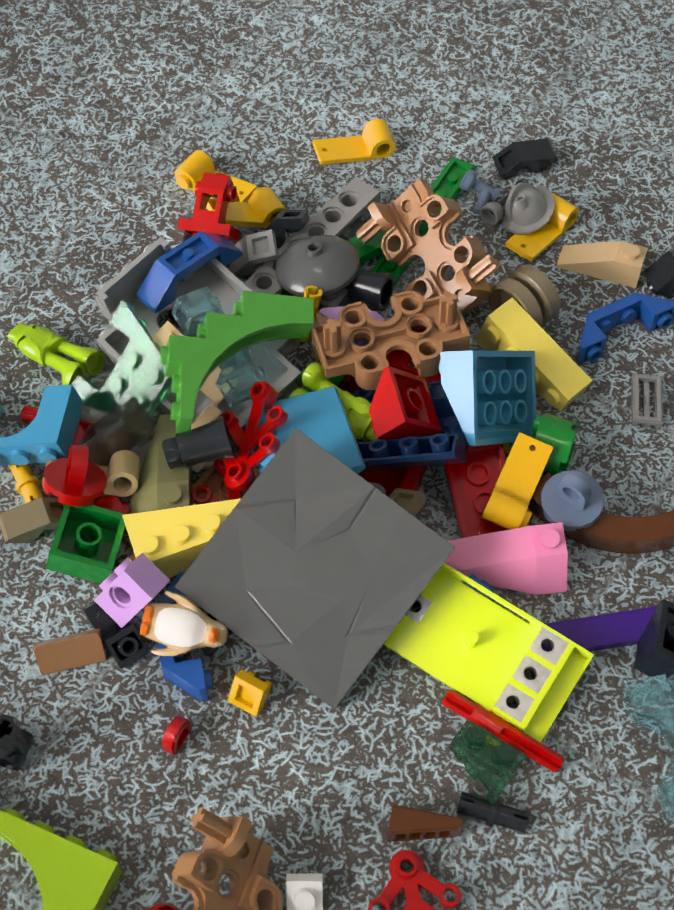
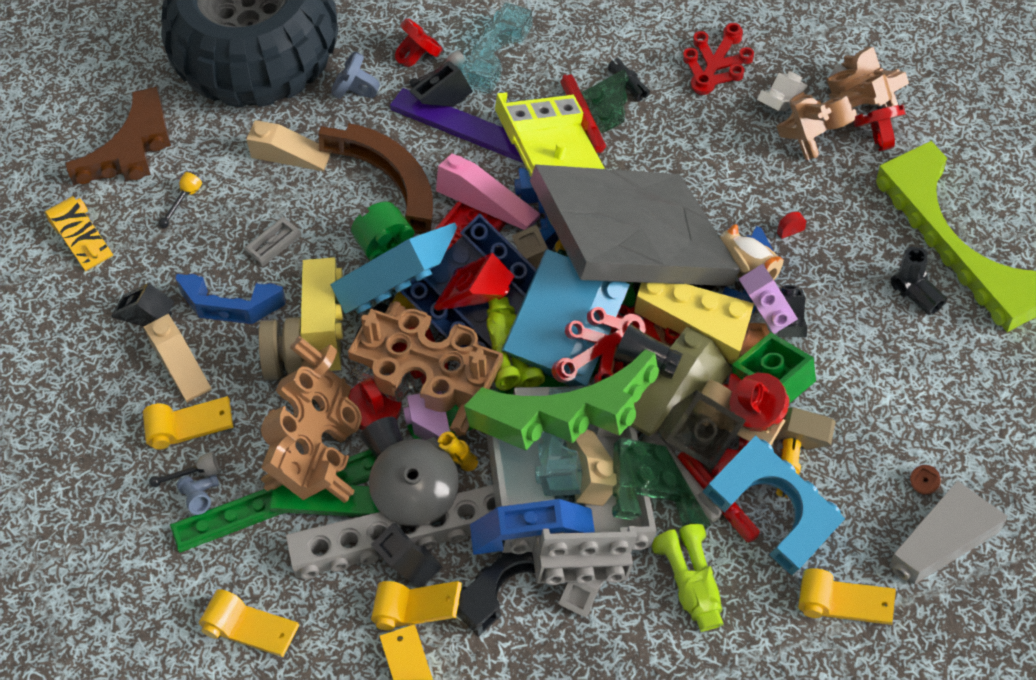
camera: 140 degrees left, 0 degrees up
(69, 651) = (832, 316): medium nougat slope -> none
(218, 187) = (445, 590): red tile -> none
(249, 692) = (723, 216): yellow tile -> none
(256, 249) = (456, 540): light grey slope -> none
(418, 824) = (677, 92): reddish brown slope -> none
(517, 483) = (455, 208): yellow door -> none
(527, 208) = (183, 438): light grey helmet -> none
(532, 153) = (120, 493): black slope -> none
(572, 499) = (412, 183): sand blue tile -> none

